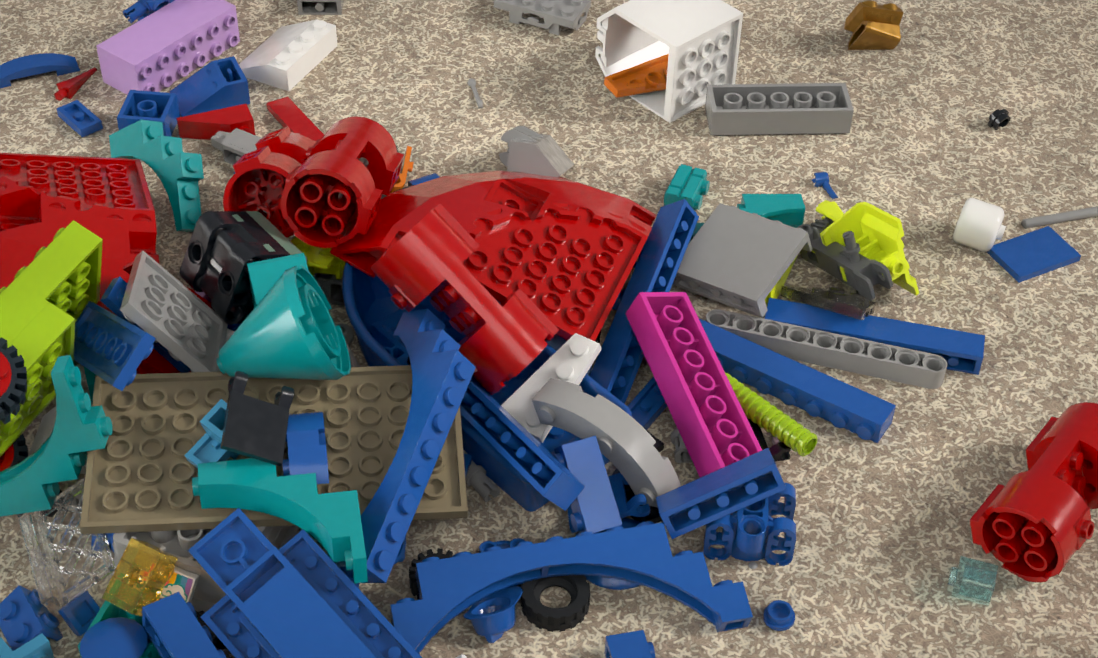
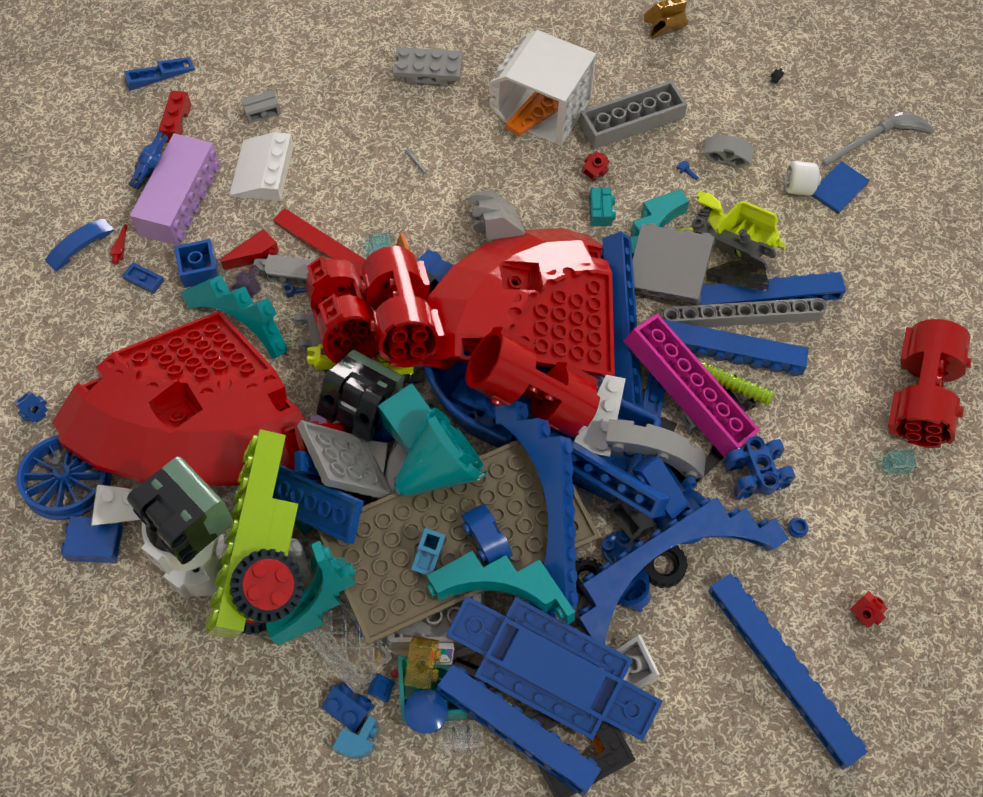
camera: 20 degrees left, 20 degrees up
(198, 143) = (247, 279): none -> clear purple plant
(213, 88) = (228, 221): blue slope -> none
(256, 426) = (454, 536): black flag -> none
(535, 517) = (631, 520): none -> dark grey piece
(700, 147) = (595, 165): none -> red brick
(720, 493) = (745, 465): blue brick -> none
(890, 174) = (728, 150): none -> light grey brick

